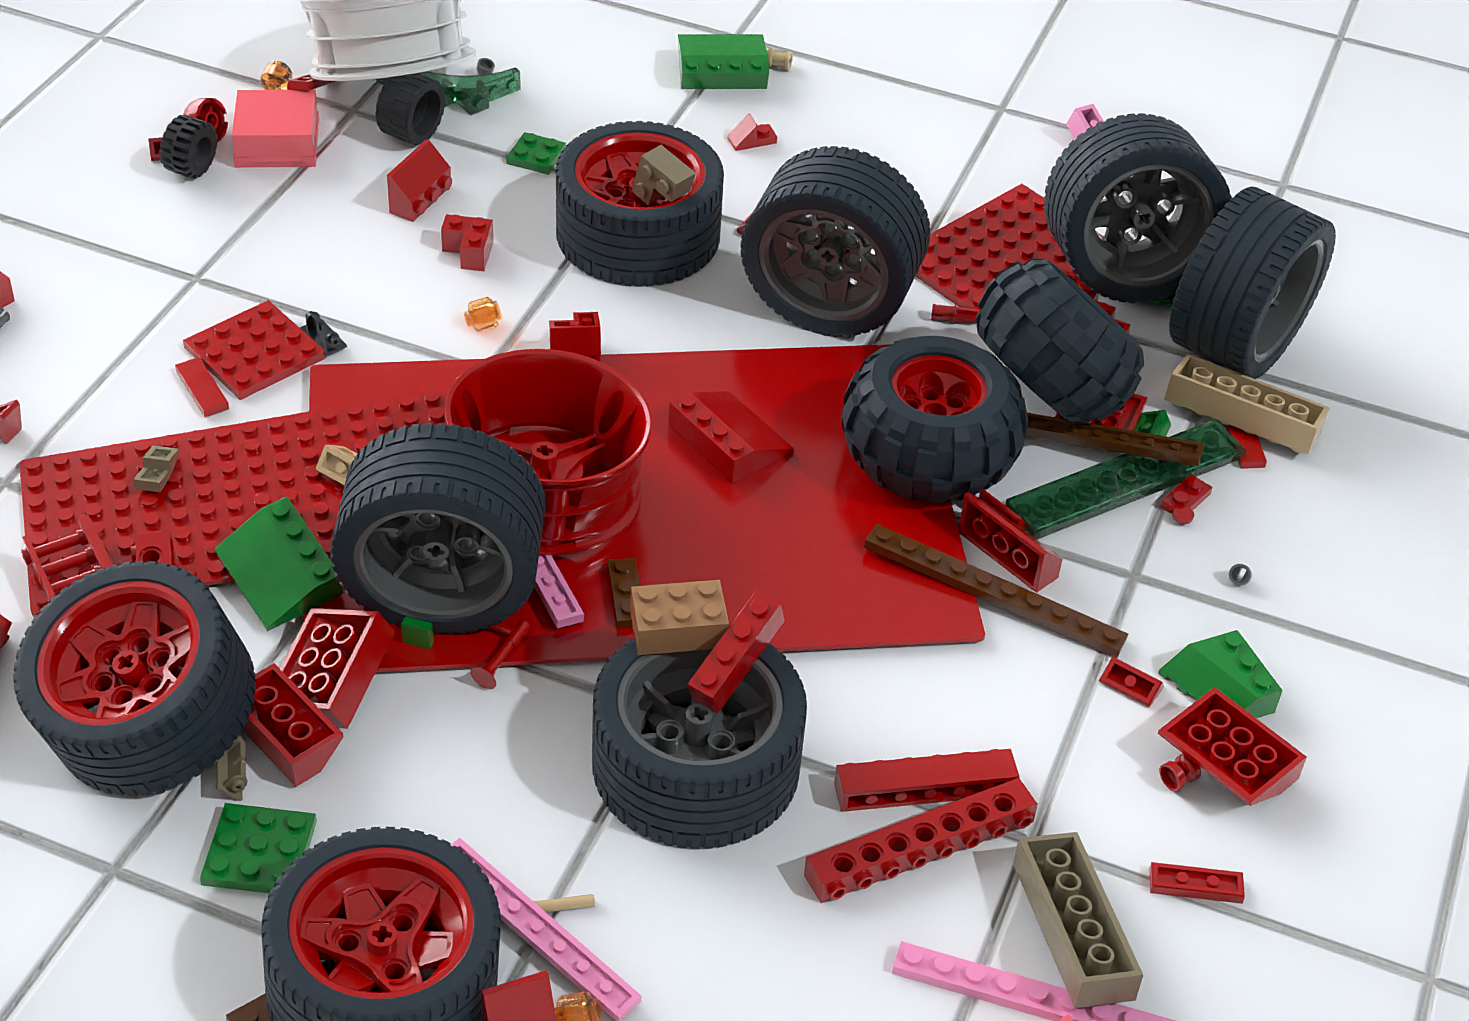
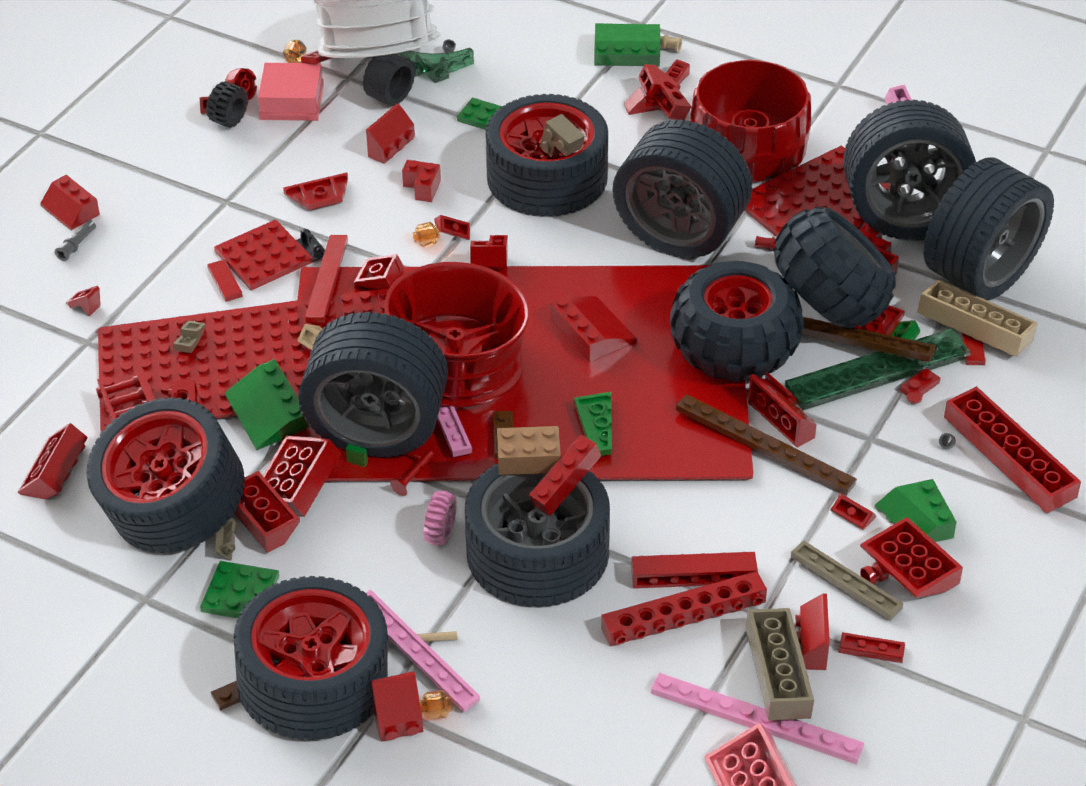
camera: 10 degrees right, 0 degrees up
(325, 261) = (319, 192): none -> red wing
(349, 381) = (326, 279): none -> tile
(425, 368) = (380, 272): none -> red slope
(519, 303) = (453, 227): none -> red slope
(550, 721) = (440, 518): none -> bright pink gear
(754, 561) = (595, 419): none -> green wing
(780, 118) = (664, 91): none -> red brick
(791, 97) = (678, 71): none -> red slope
(921, 129) = (759, 111): none -> red wheel
(1119, 863) = (814, 632): none -> red slope
(1144, 783) = (847, 580): none -> dark tan plate
(1332, 583) = (1012, 449): none -> red brick

